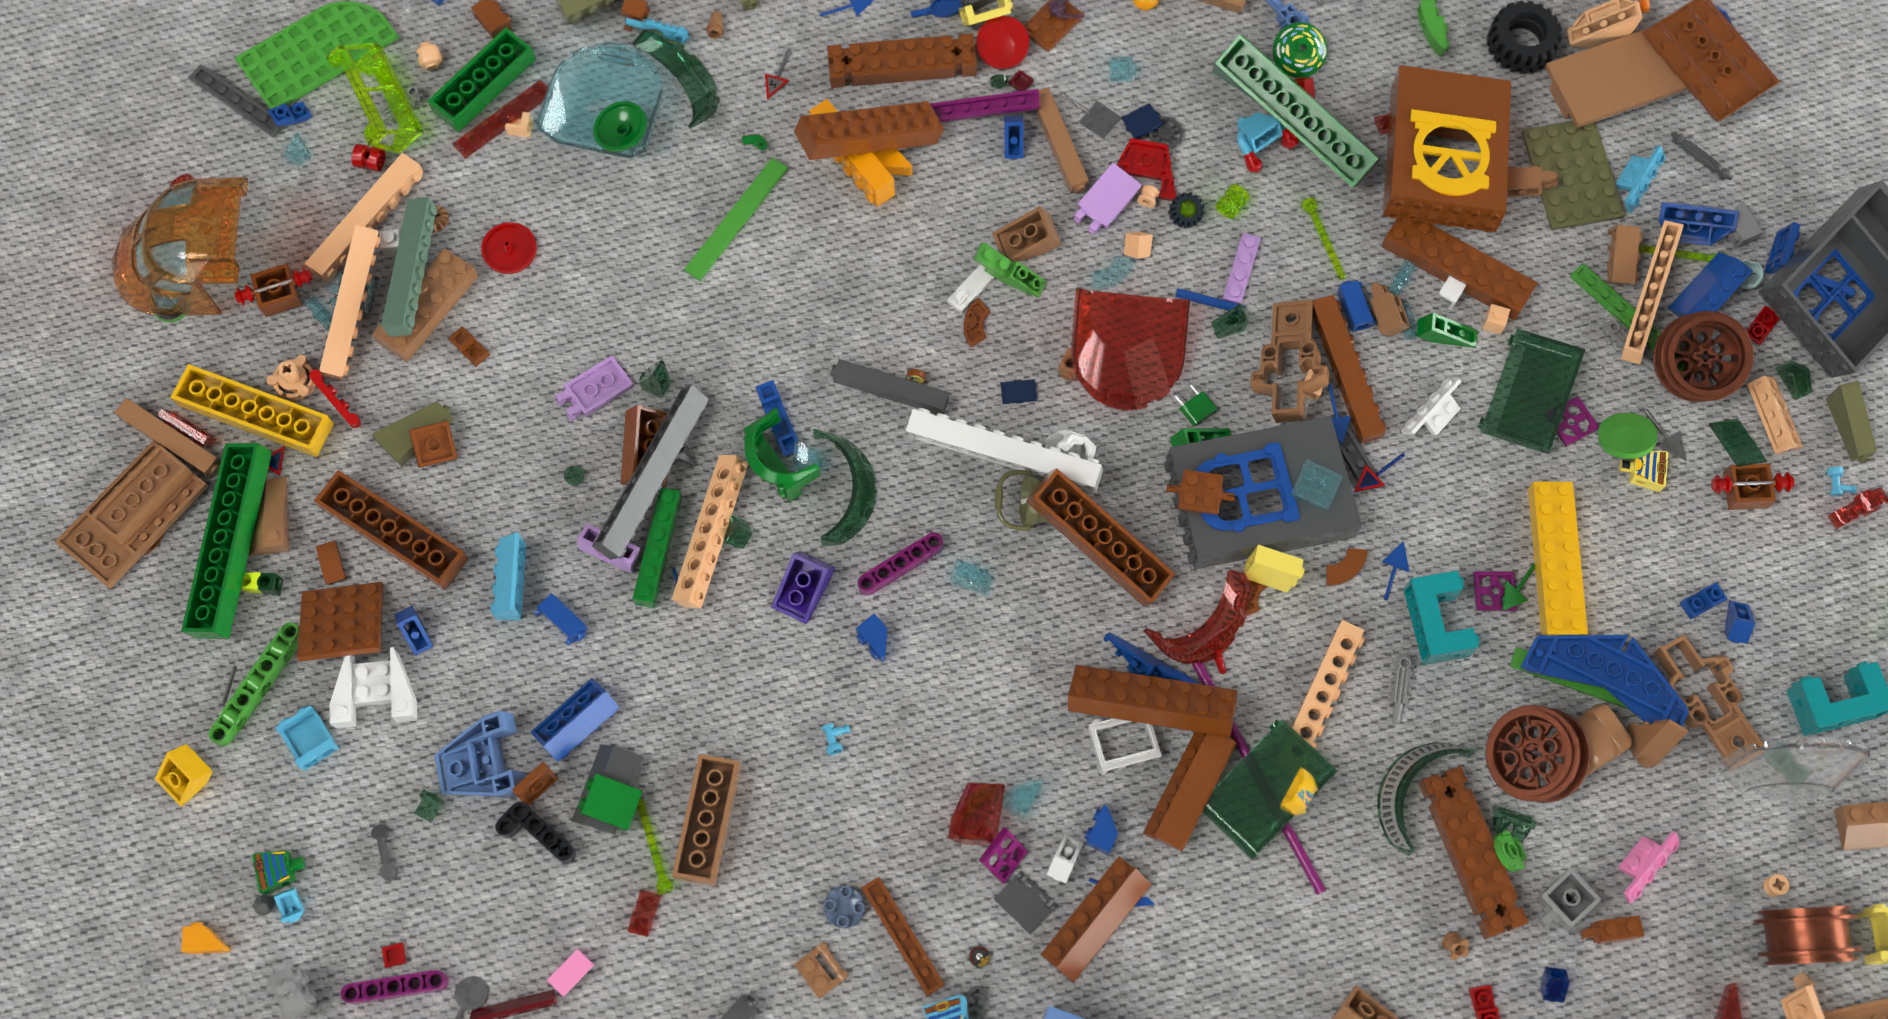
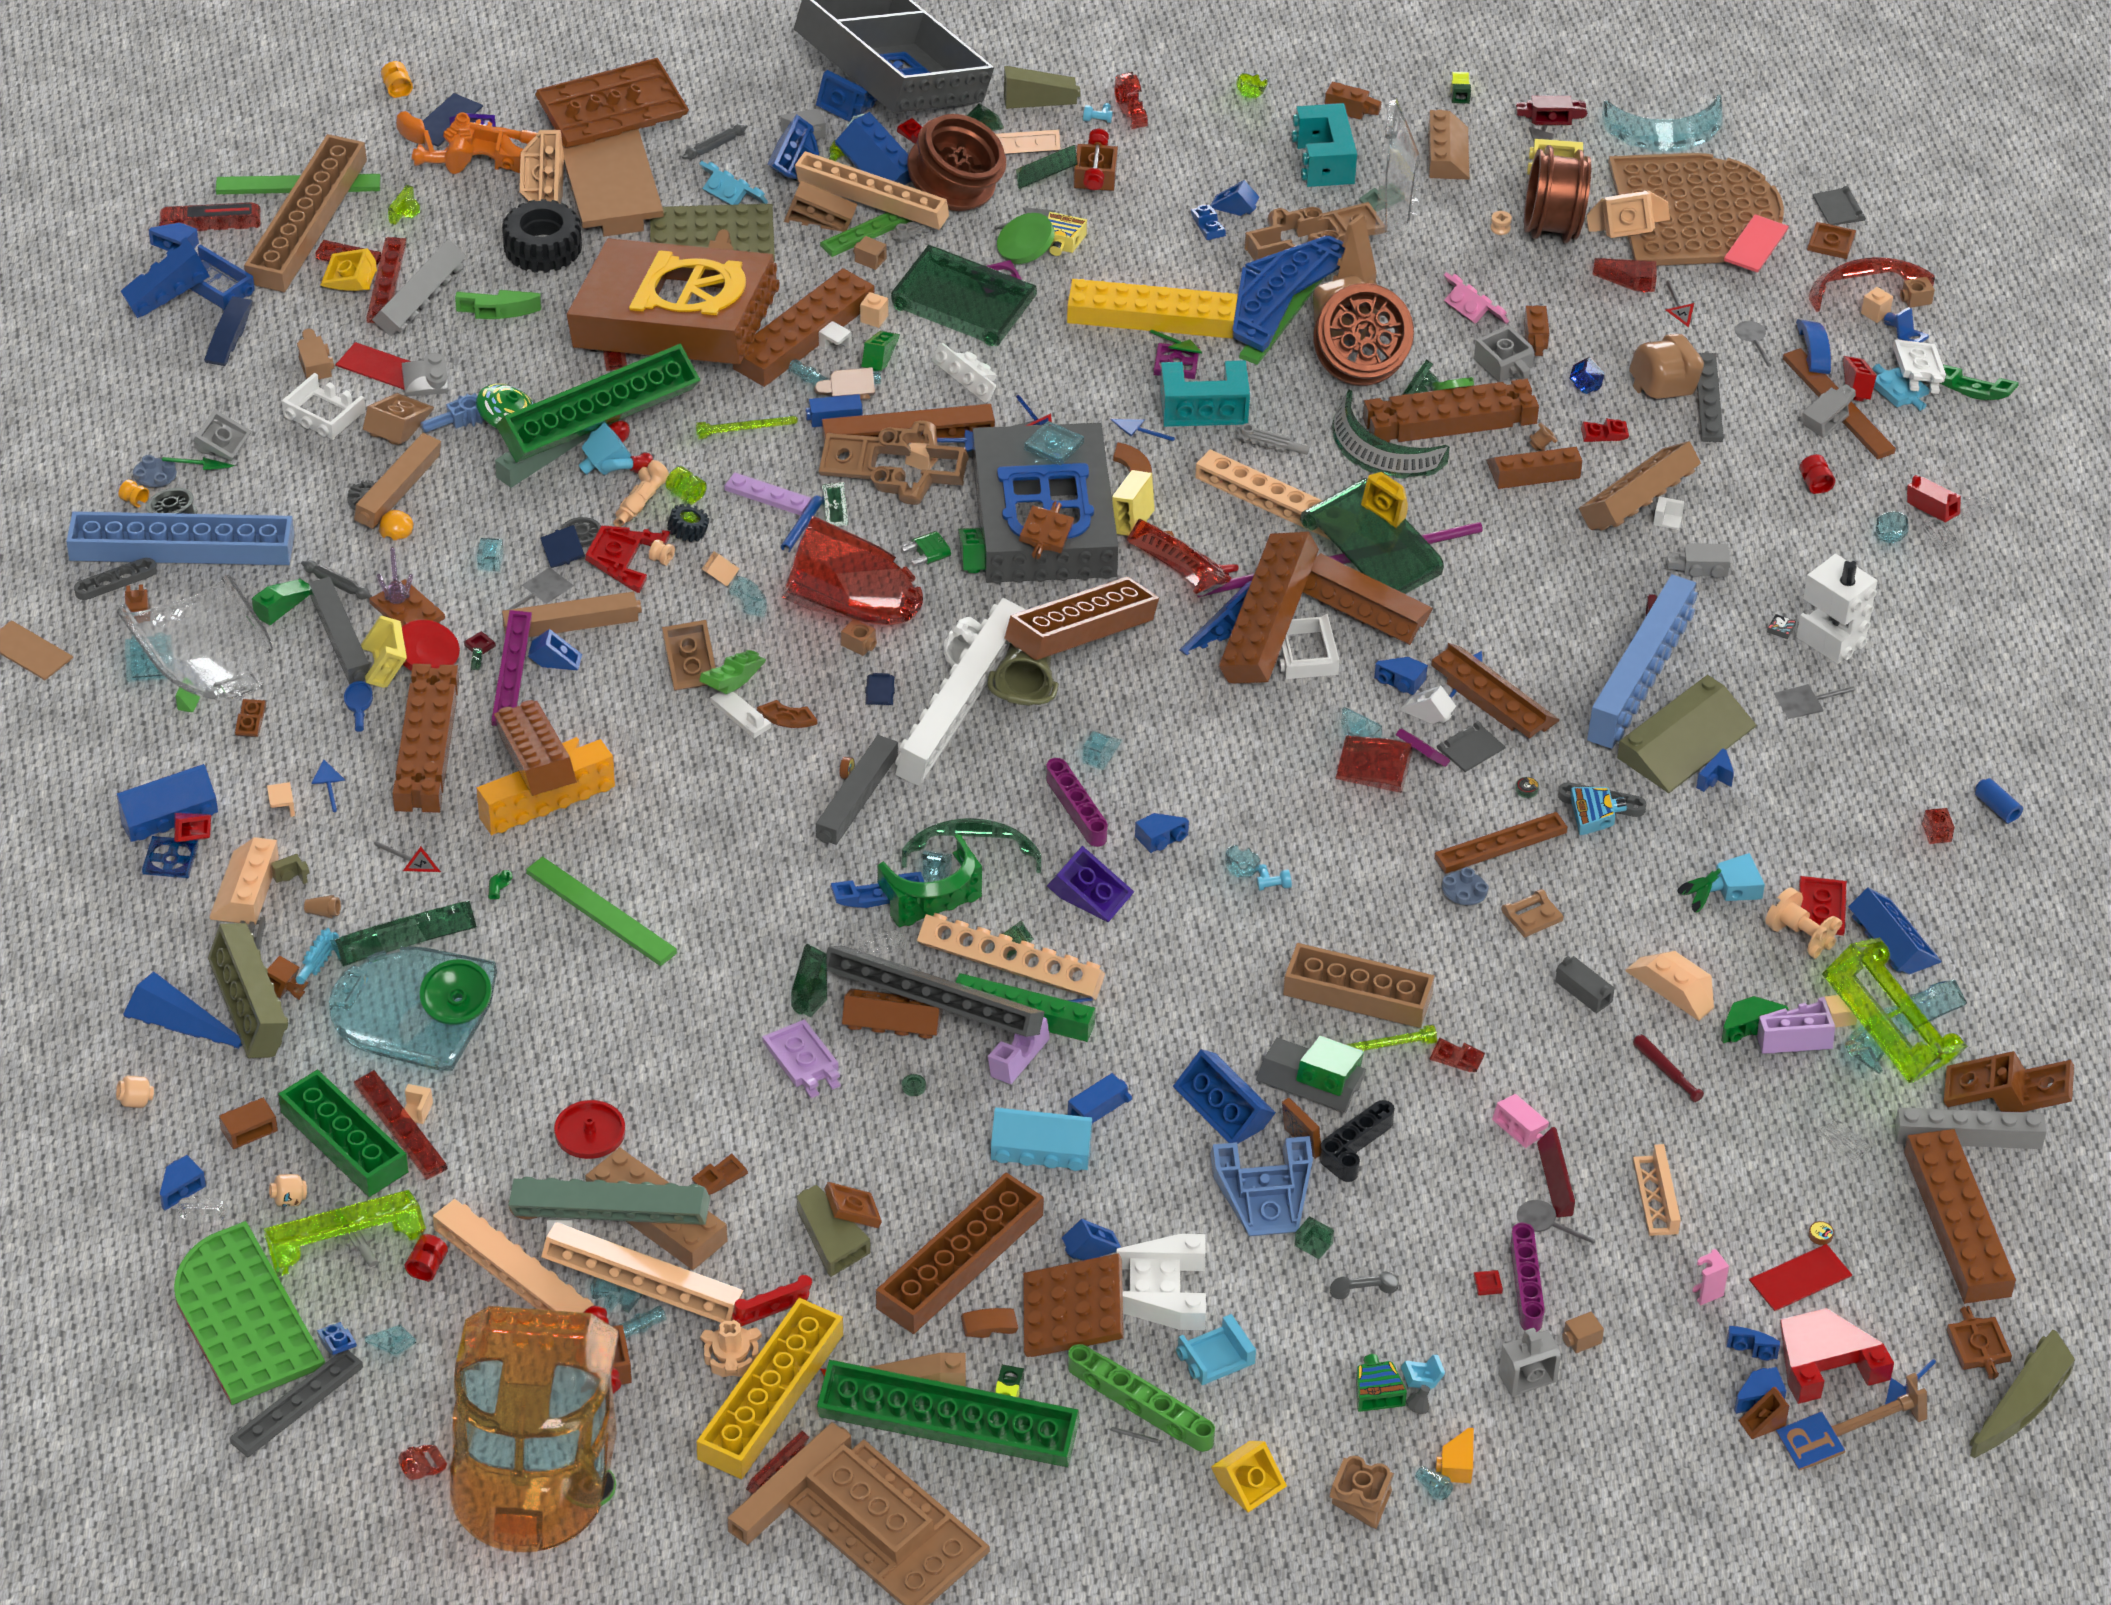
camera: 85 degrees left, 25 degrees down
(160, 863) = (1362, 1489): none -> medium nougat piece
(176, 924) = (1435, 1483): none -> clear light blue cone
(848, 701) = (1236, 859): none -> clear light blue hair
(1107, 198) = (657, 585): lavender tile -> none
(1213, 168) = (651, 480): none -> light nougat piece
(1417, 939) = (1536, 467): none -> dark orange slope
(1576, 305) = (870, 252): none -> medium nougat brick

